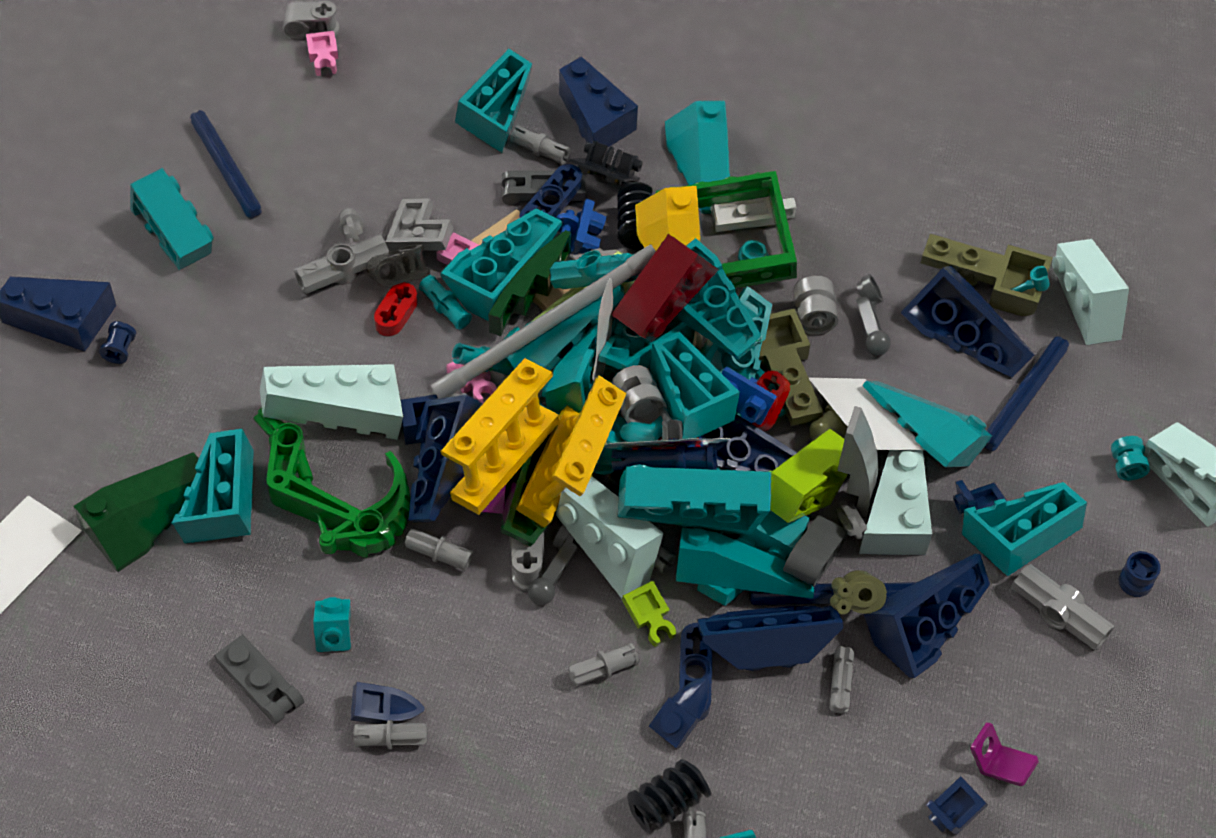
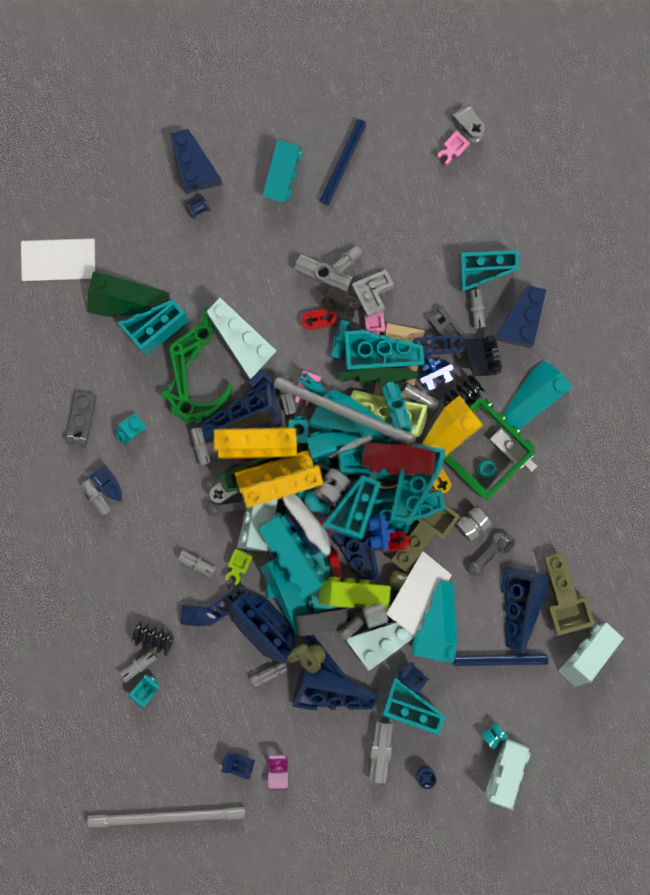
camera: 55 degrees right, 30 degrees up
(670, 427) = (321, 517): dark grey hand -> none
(1039, 280) = (568, 625): teal hand -> none

